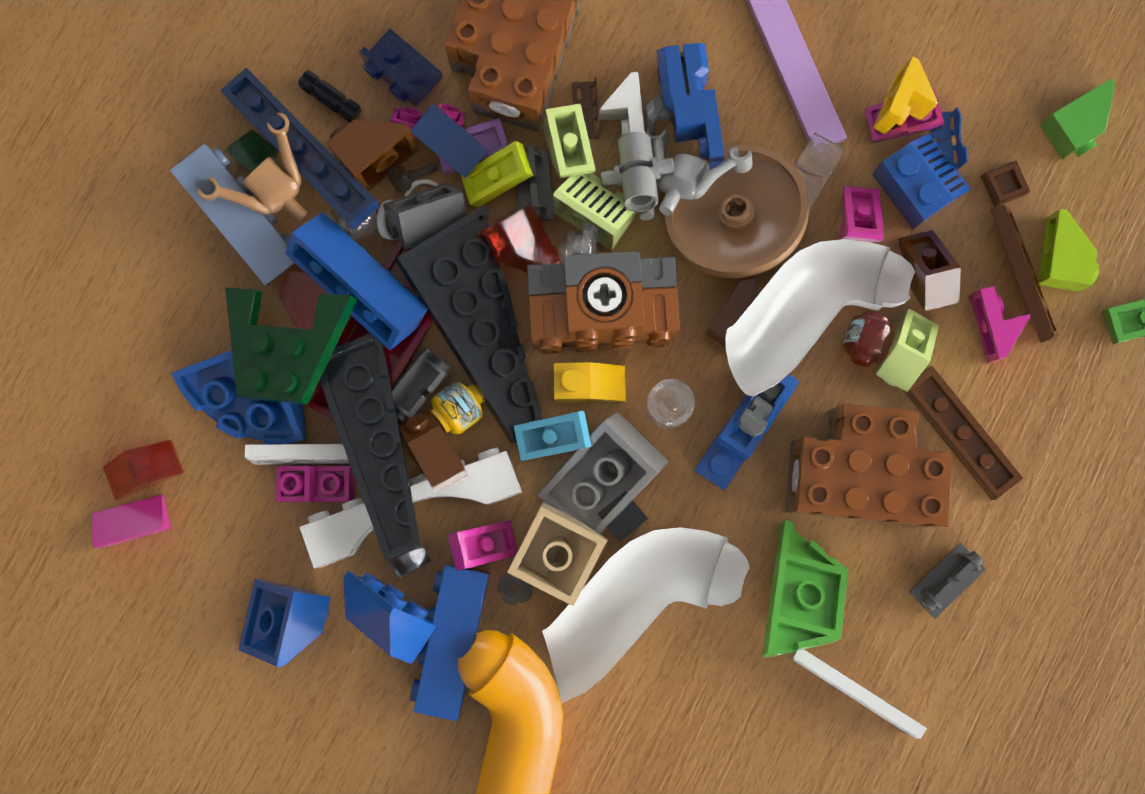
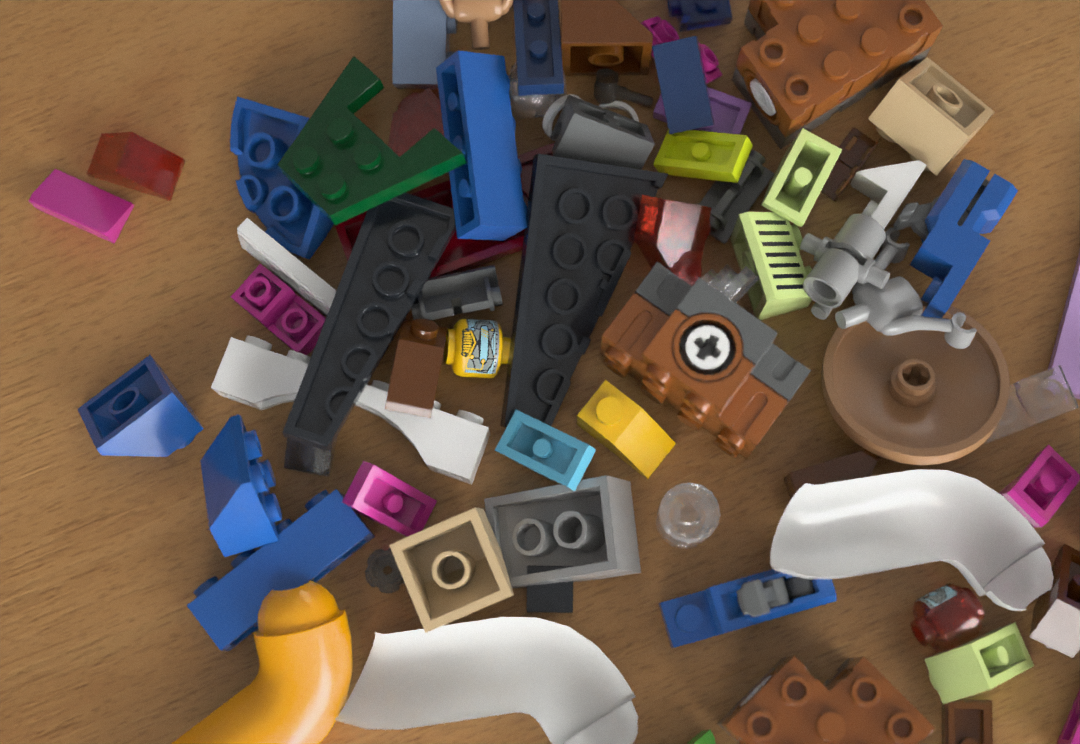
camera: 45 degrees right, 5 degrees down
(614, 38) = (930, 115): none -> tan slope

